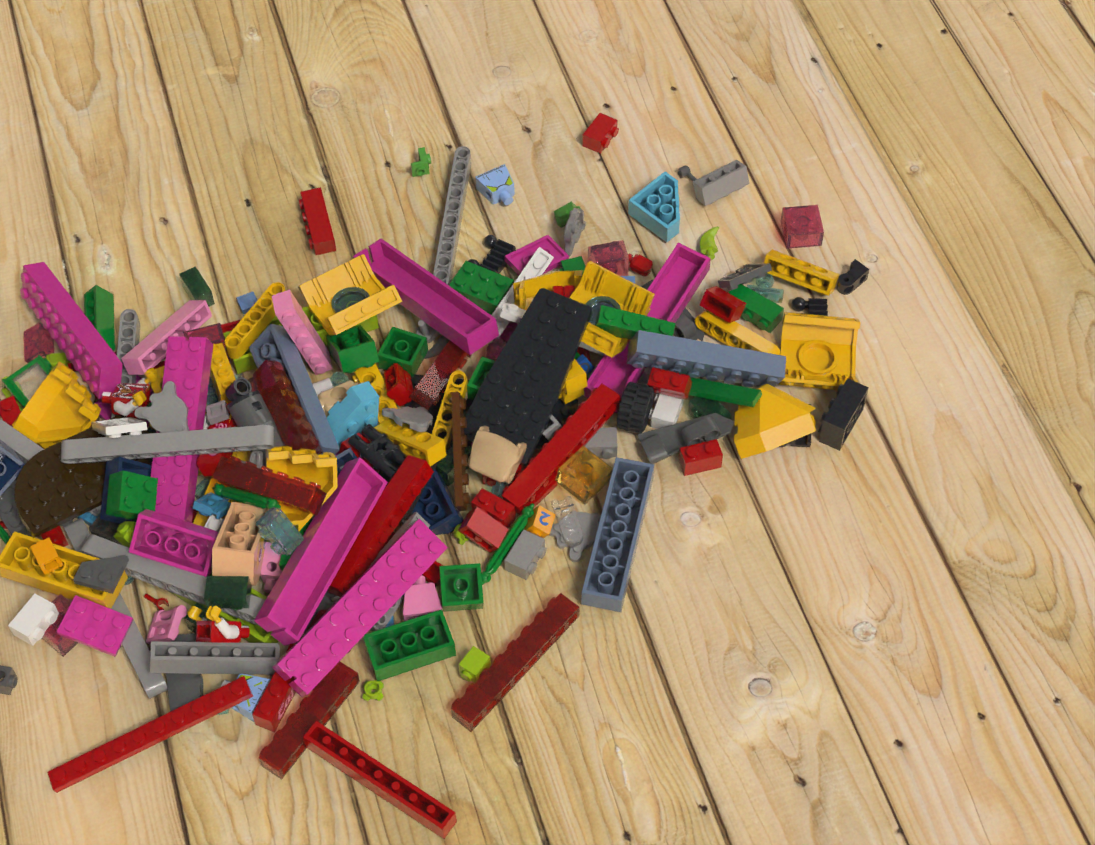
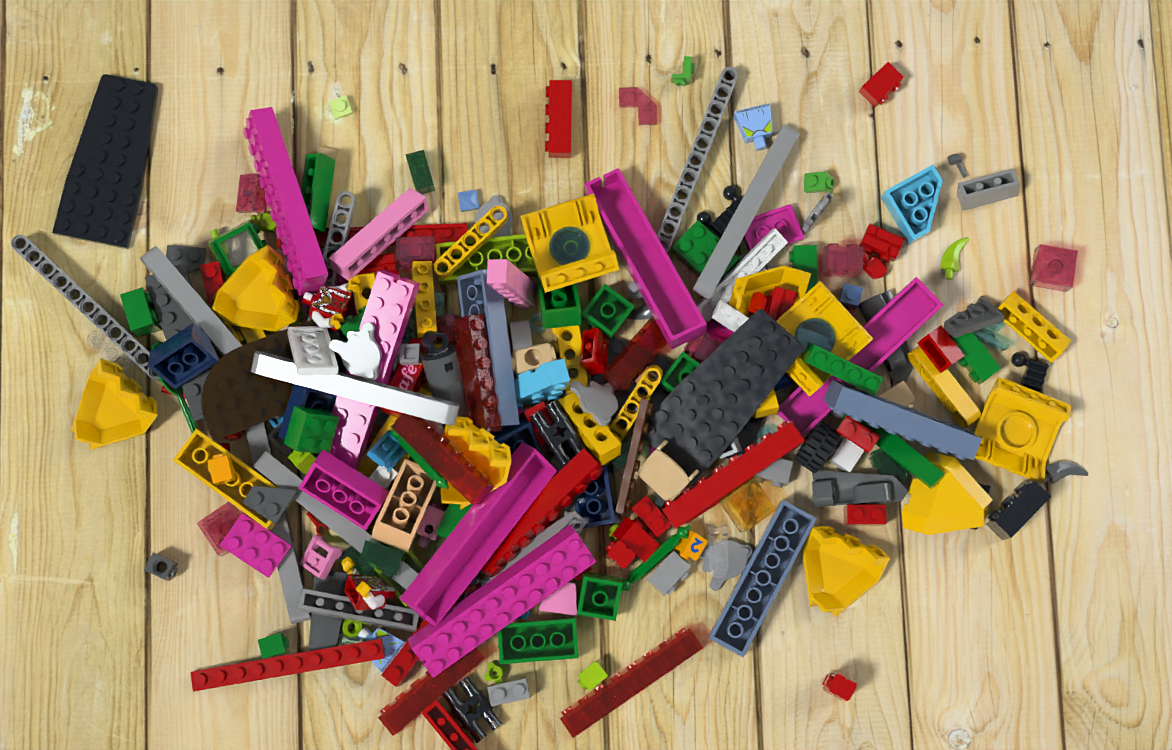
camera: 10 degrees right, 25 degrees up
(34, 619) = (201, 527): white brick -> none
(110, 260) = (340, 107): none -> yellowish green plate
(131, 719) = (273, 645): none -> green brick
(216, 680) = (354, 631): none -> lime plate
(279, 531) = (442, 514): clear light blue brick -> none
(358, 719) = (474, 697): none -> black pin
(382, 192) = (636, 98): none -> clear pink tile
(391, 701) = (508, 692): none -> light grey brick
(471, 545) = (620, 554): none -> red brick
(507, 244) = (745, 212): none -> light grey beam
(642, 243) = (881, 243): none -> red brick
(692, 506) = (839, 568): none -> yellow panel
(726, 605) = (839, 686): none -> red brick
(853, 278) = (1089, 343): black leg -> none
(873, 378) = (1059, 470): none -> dark grey bar

